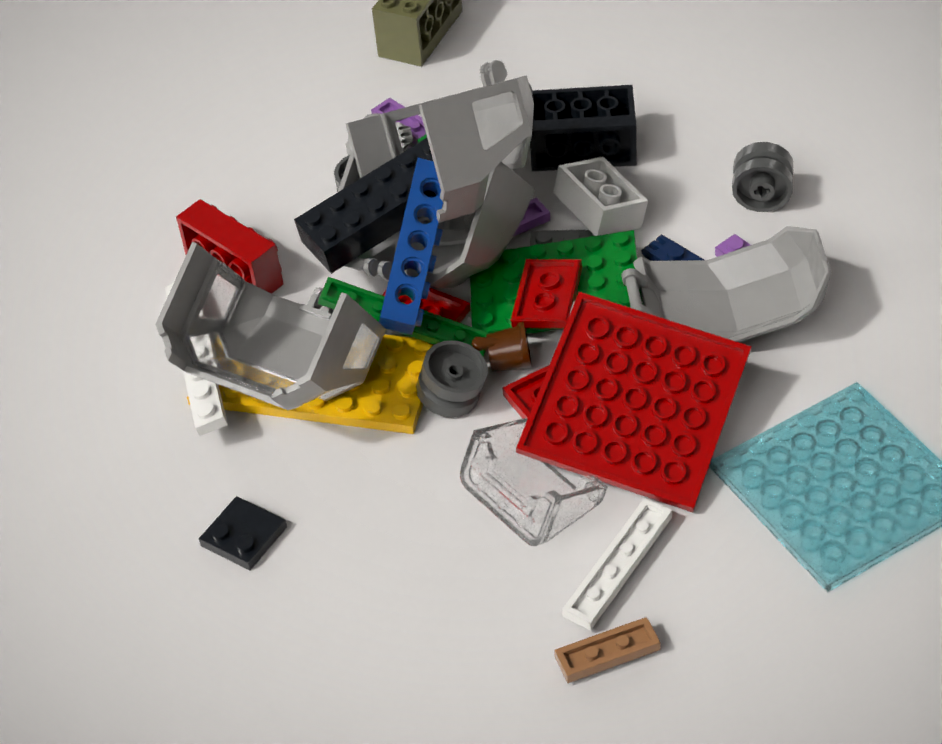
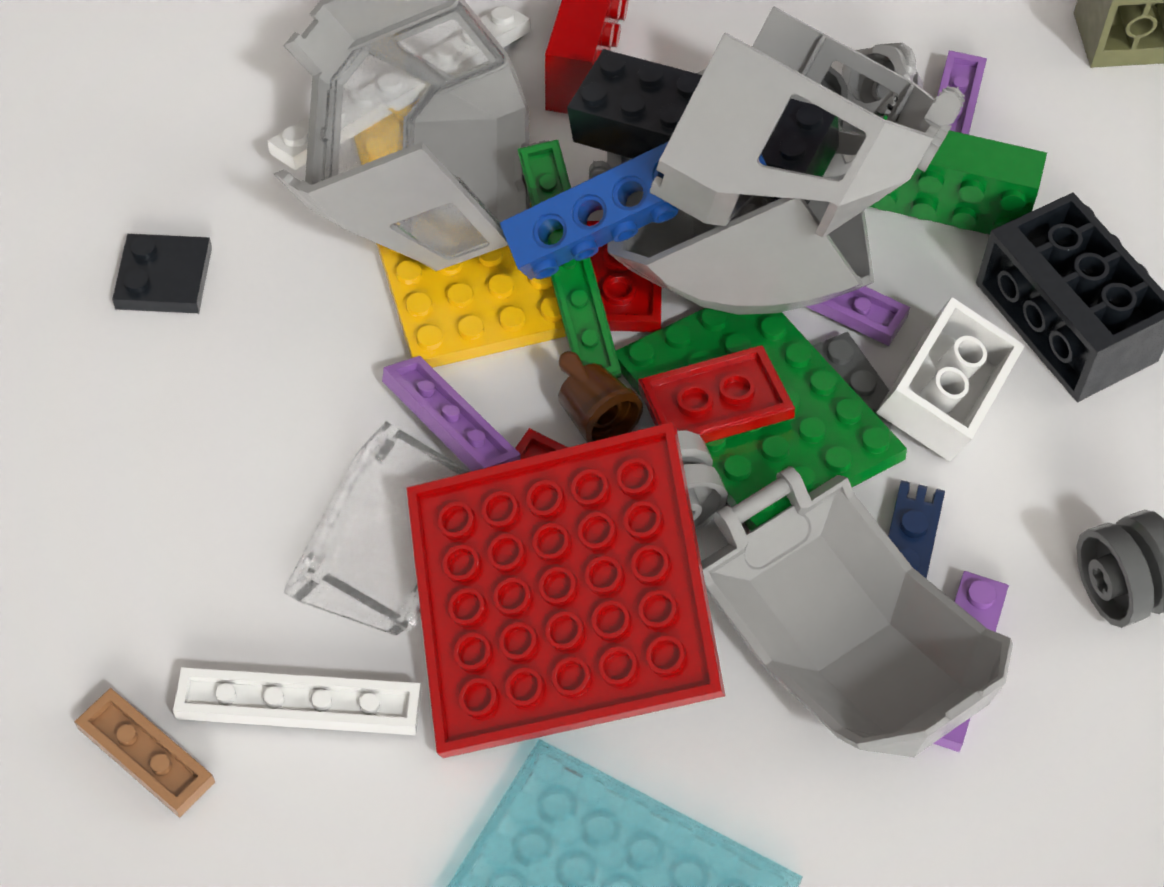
camera: 55 degrees right, 10 degrees up
(451, 378) = (503, 337): dark grey wheel -> none
(465, 420) = (448, 414): none -> medium lavender plate

